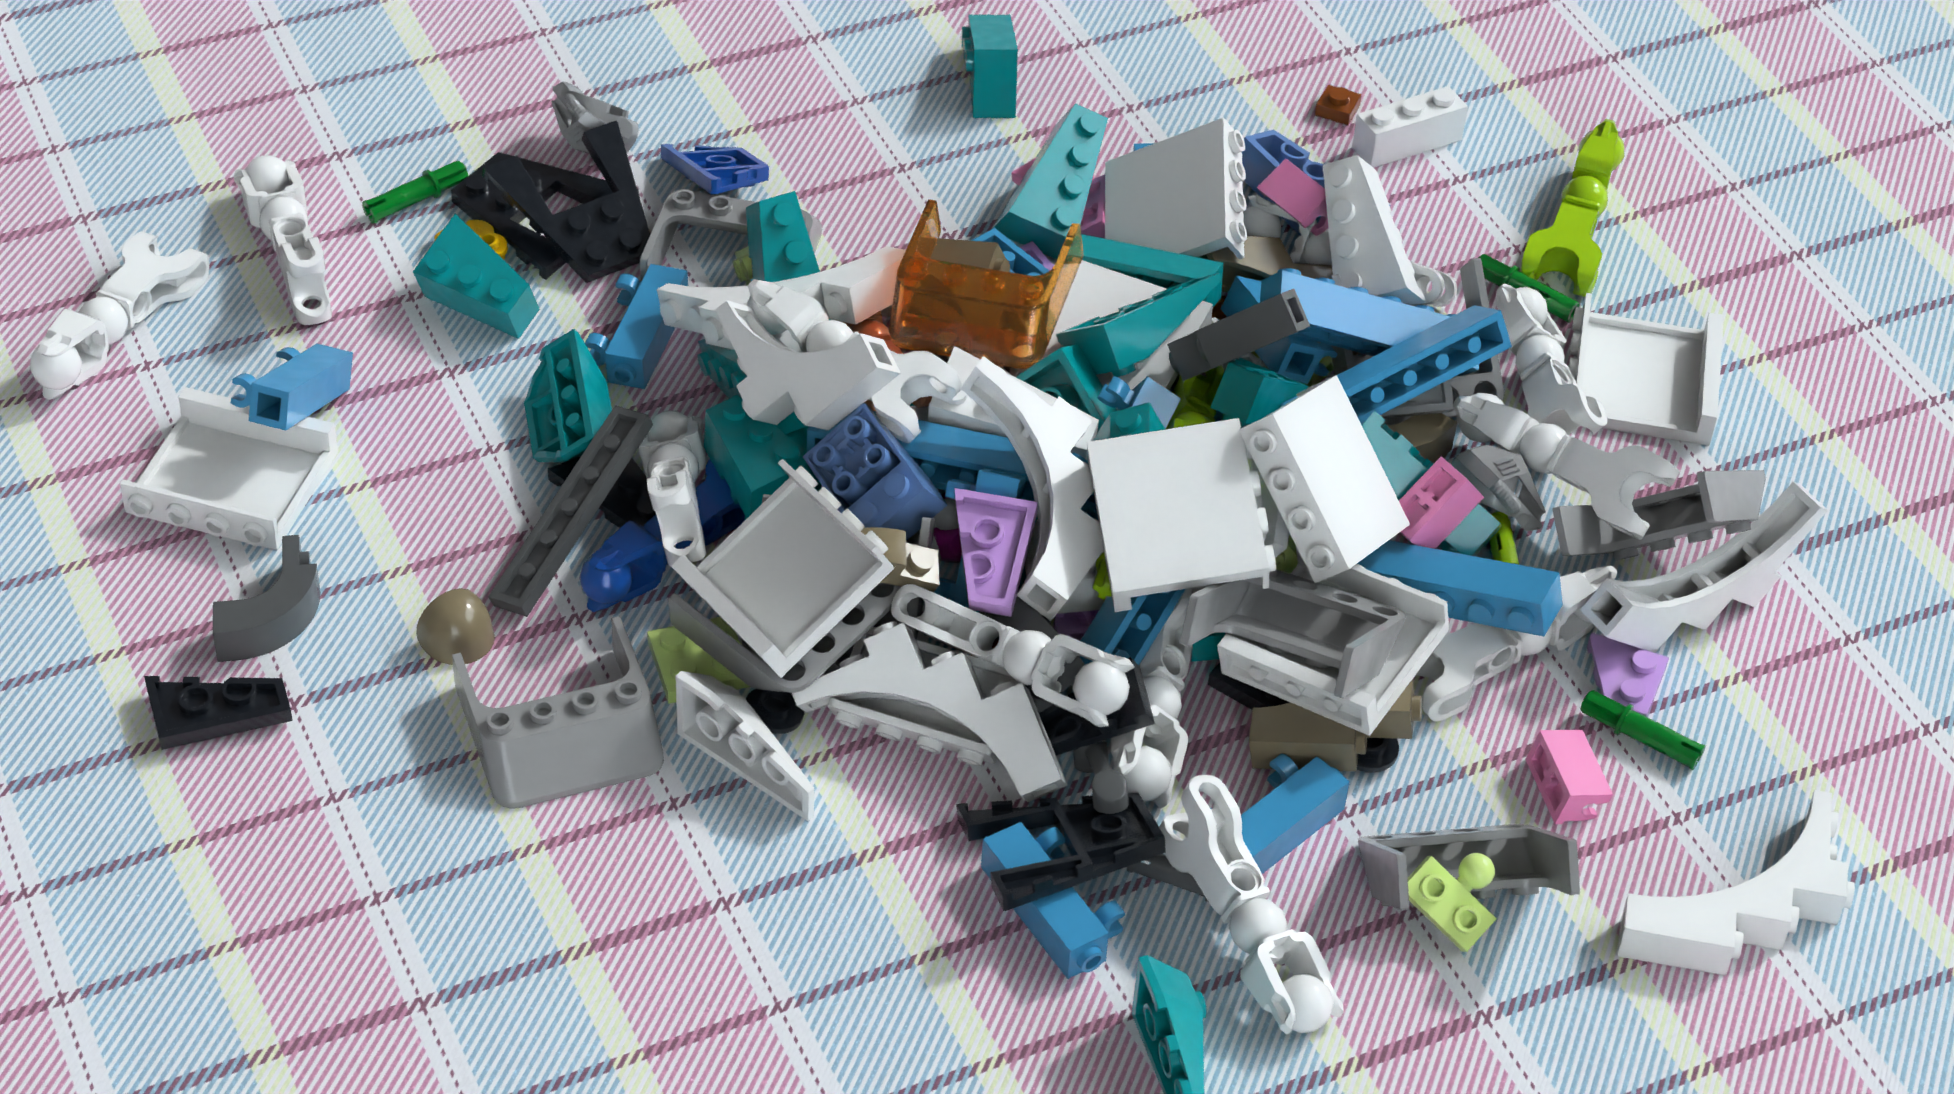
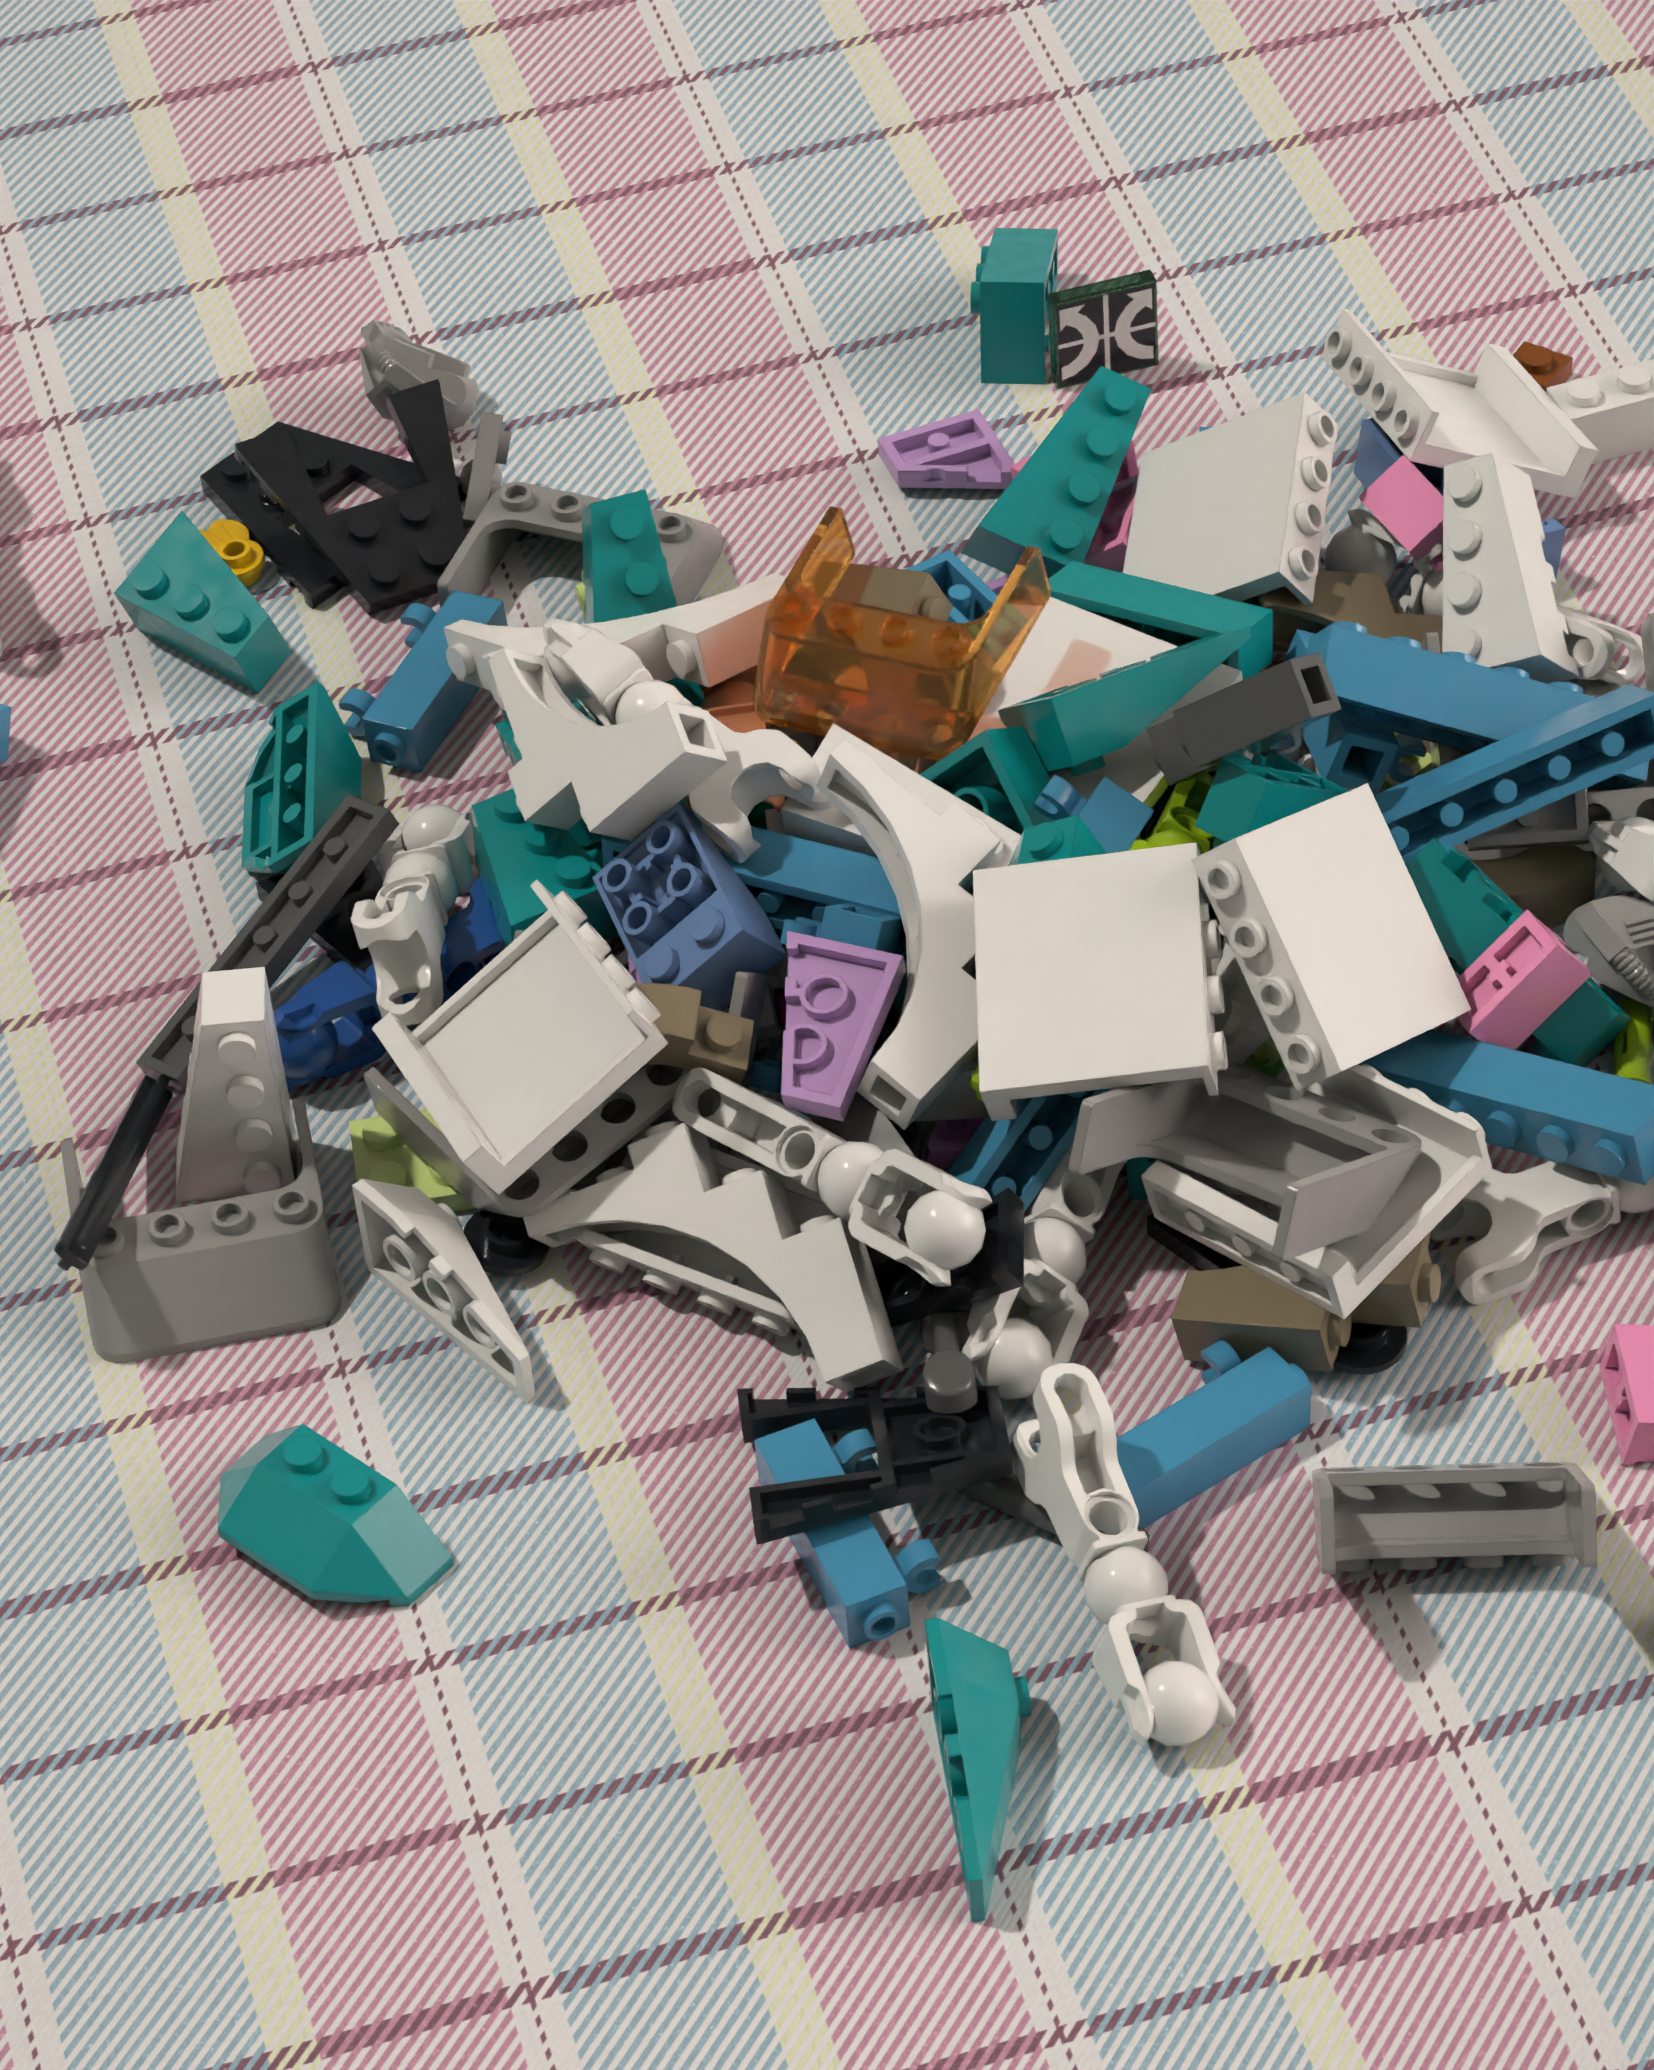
camera: 15 degrees right, 0 degrees up
(415, 191) = (150, 476): green axle -> none
(456, 624) = (80, 1100): dark tan helmet -> none
(495, 675) = (113, 1173): none -> black axle
(576, 620) = (236, 1103): none -> white wedge
(652, 184) = (481, 475): none -> light grey plate
(689, 910) = (327, 1522): none -> teal wedge
(717, 167) = (582, 450): blue wing -> none
(965, 165) = (948, 455): none -> lavender wing
(1055, 80) = (1104, 326): none -> tile
(1305, 133) = (1455, 415): none -> white panel
(1449, 900) = (1422, 1568): yellowish green plate -> none

